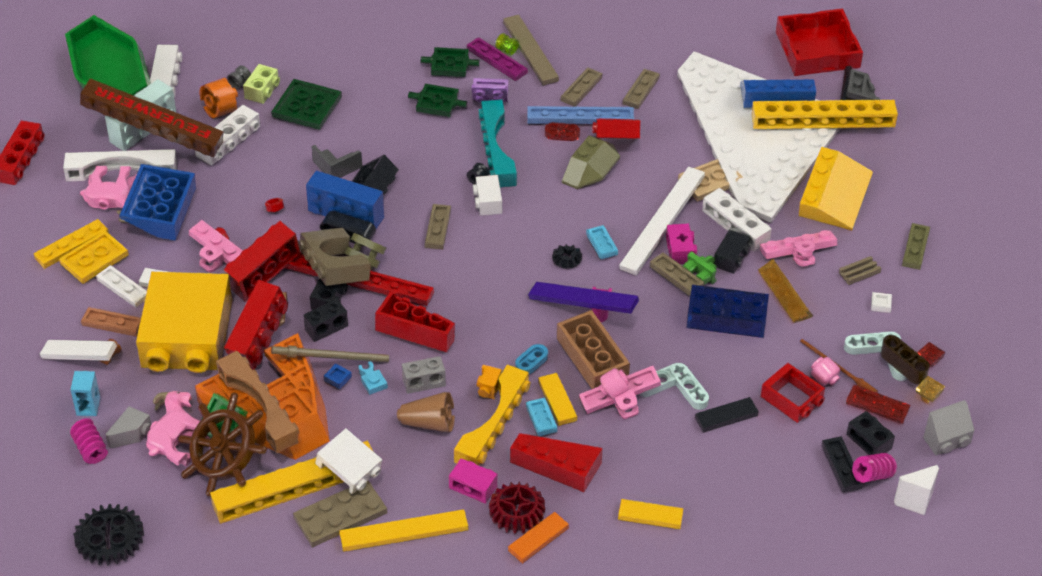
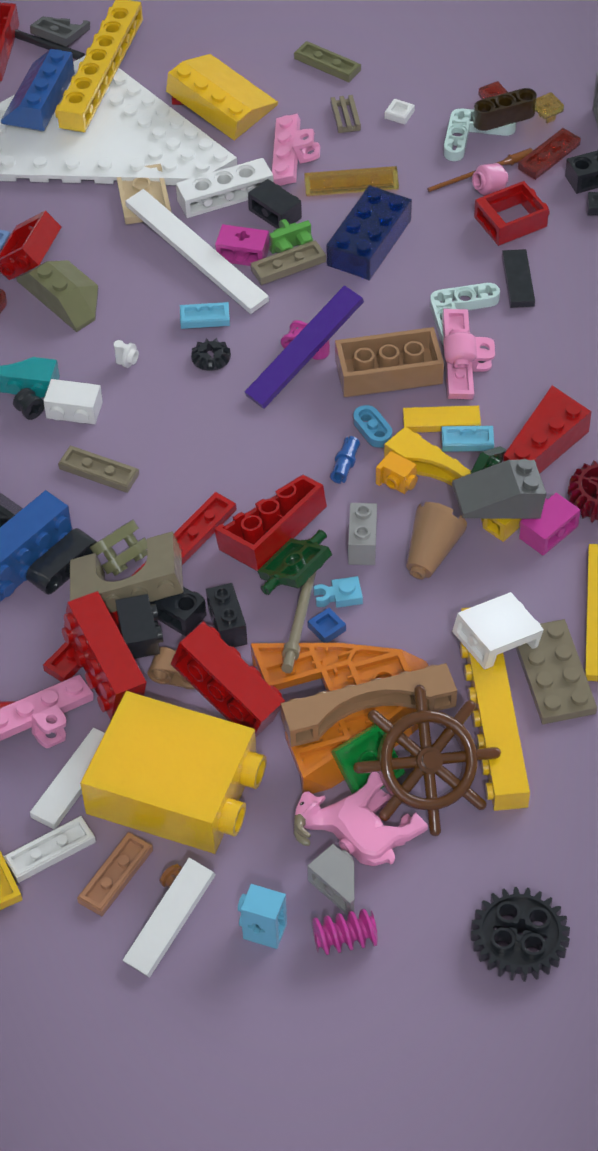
camera: 70 degrees left, 5 degrees up
(292, 272) = (139, 625): none -> black brick
(382, 343) = (294, 562): none -> dark green plate
(475, 436) = (502, 491): none -> dark grey slope
(493, 351) = (345, 459): none -> blue pin
(509, 425) = (489, 458): none -> dark green plate
(544, 211) = (125, 353): none -> white plate

